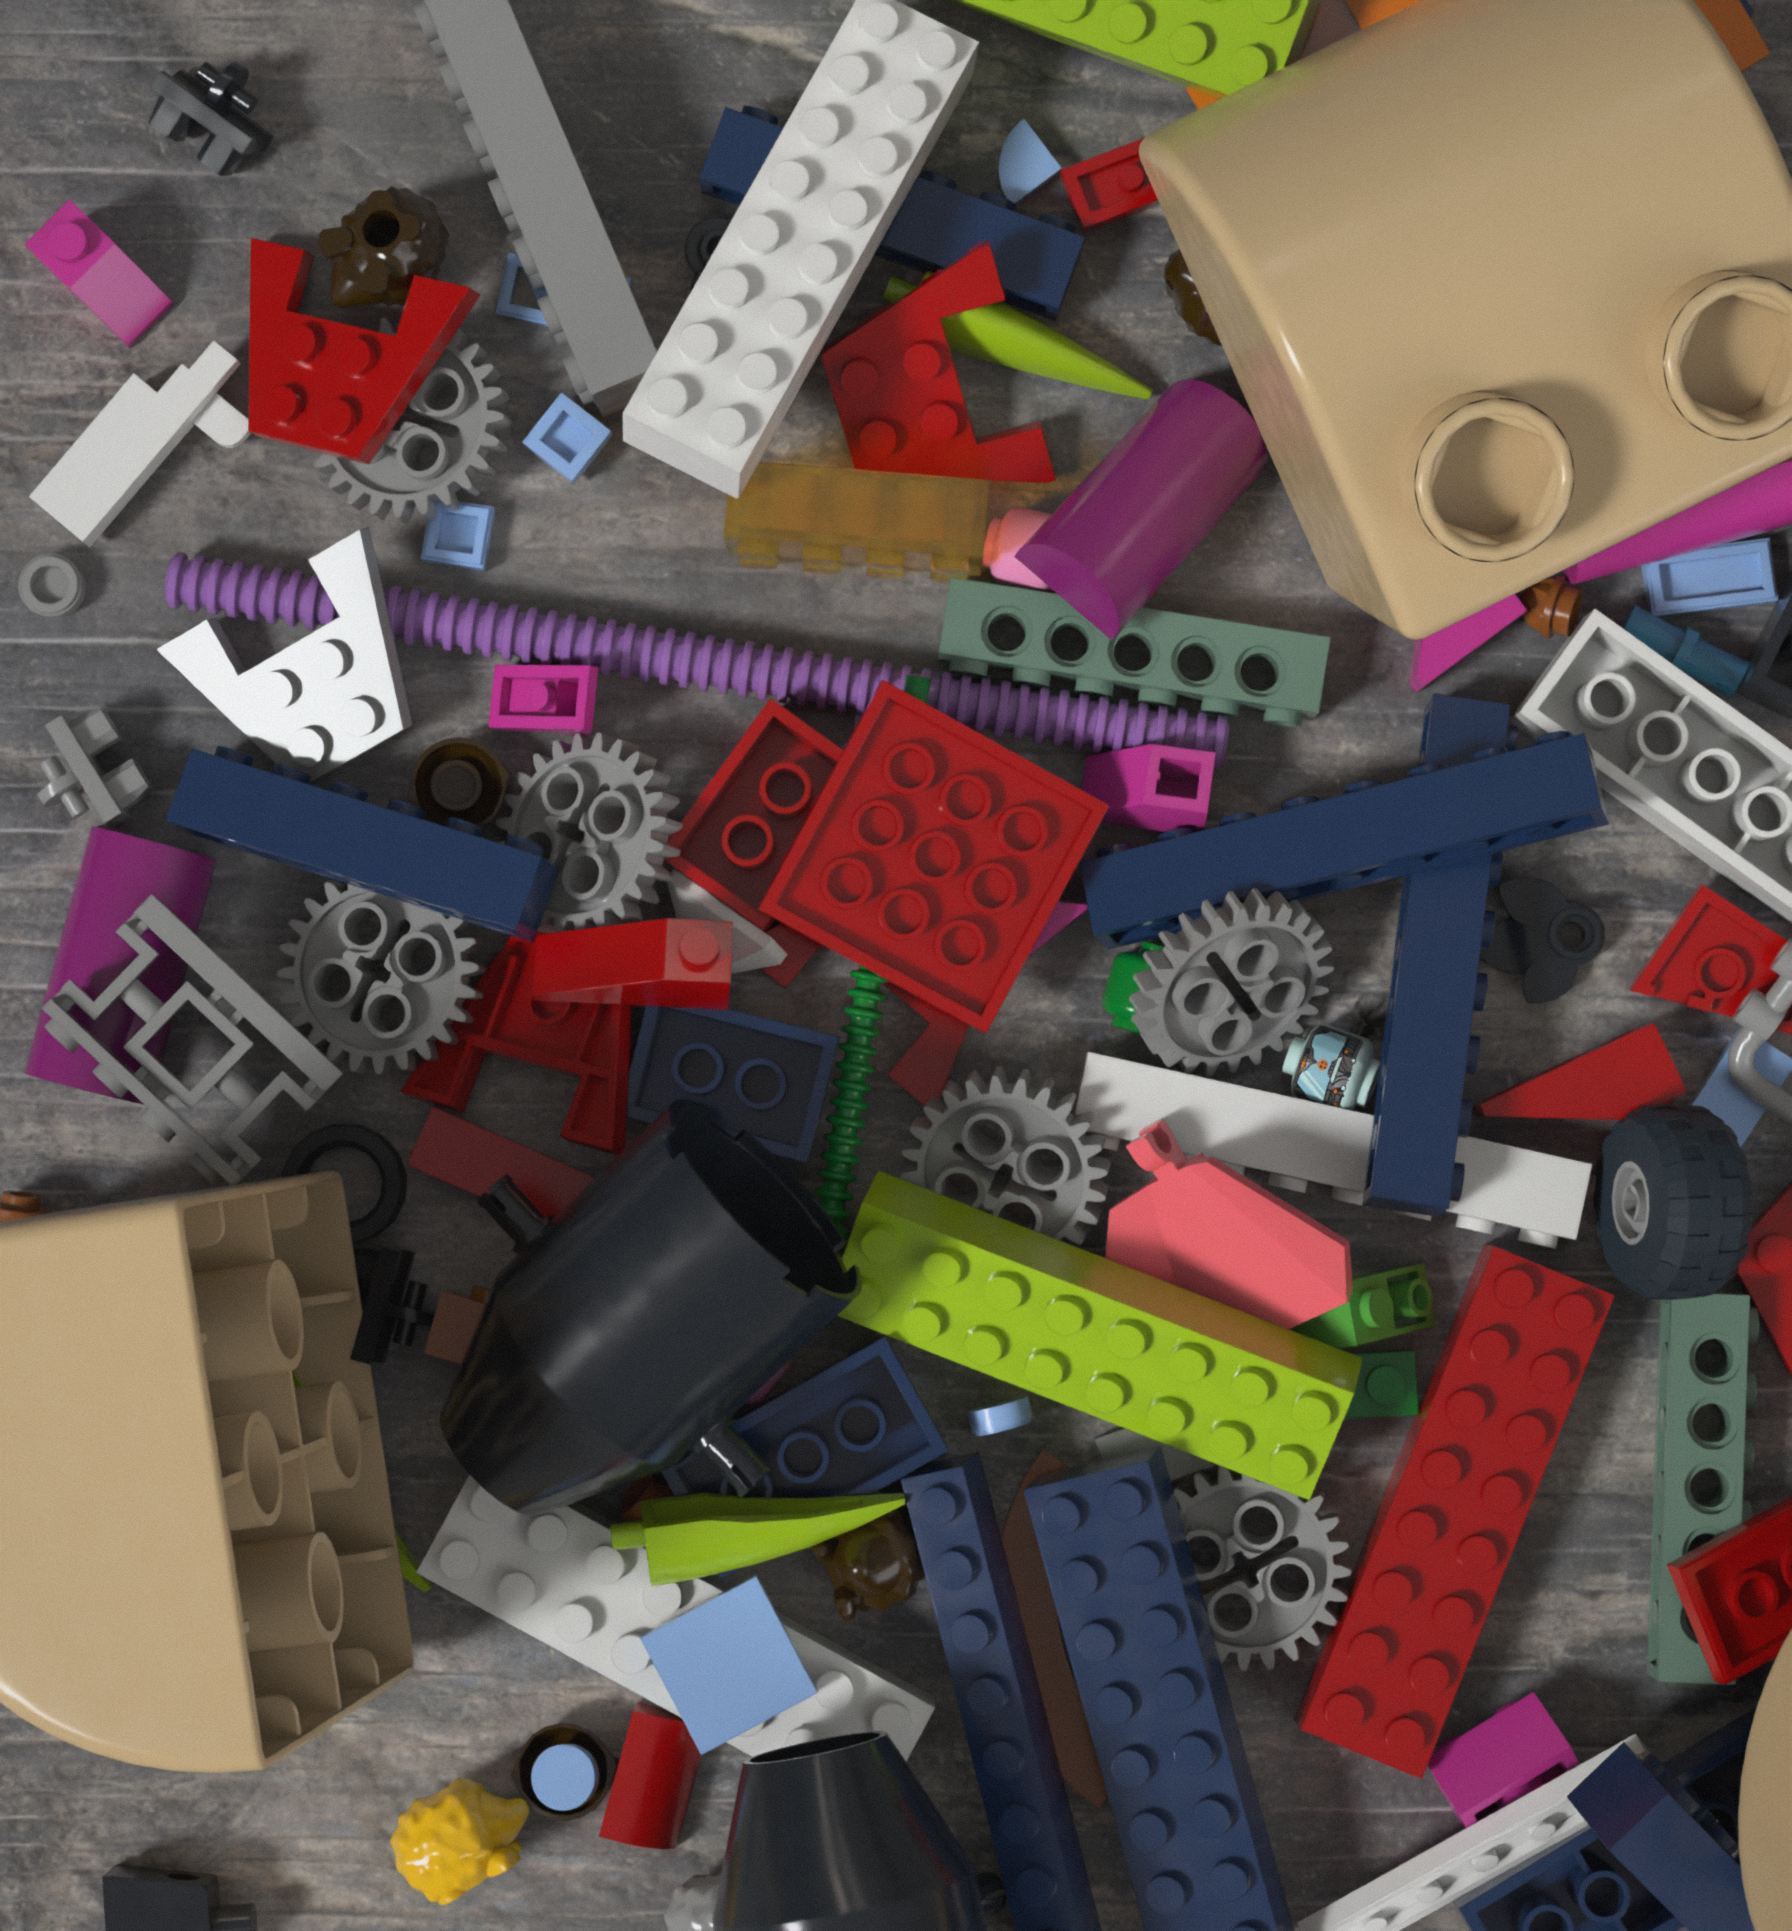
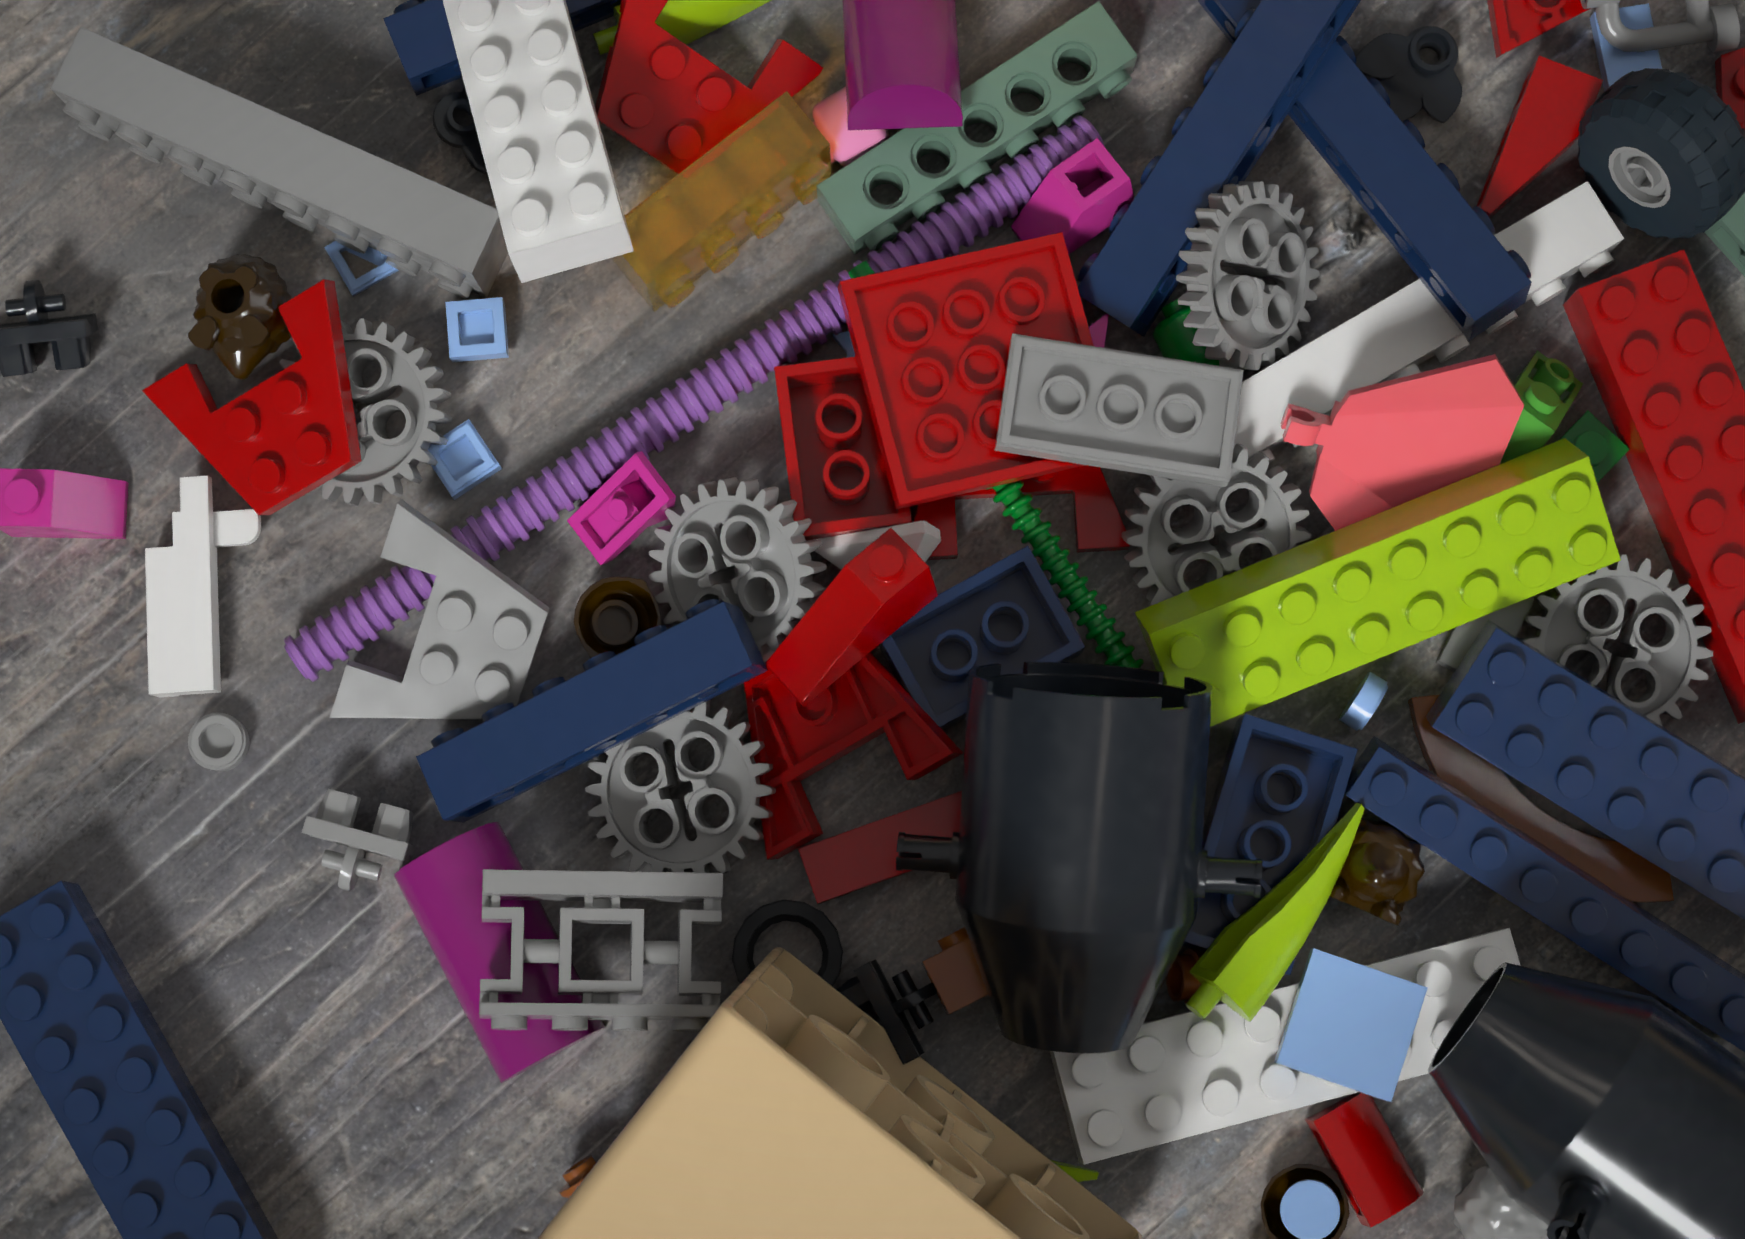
camera: 45 degrees left, 5 degrees down
(1012, 997) = (1119, 410): none -> light grey tile
(1332, 1068) = (1361, 276): head -> none

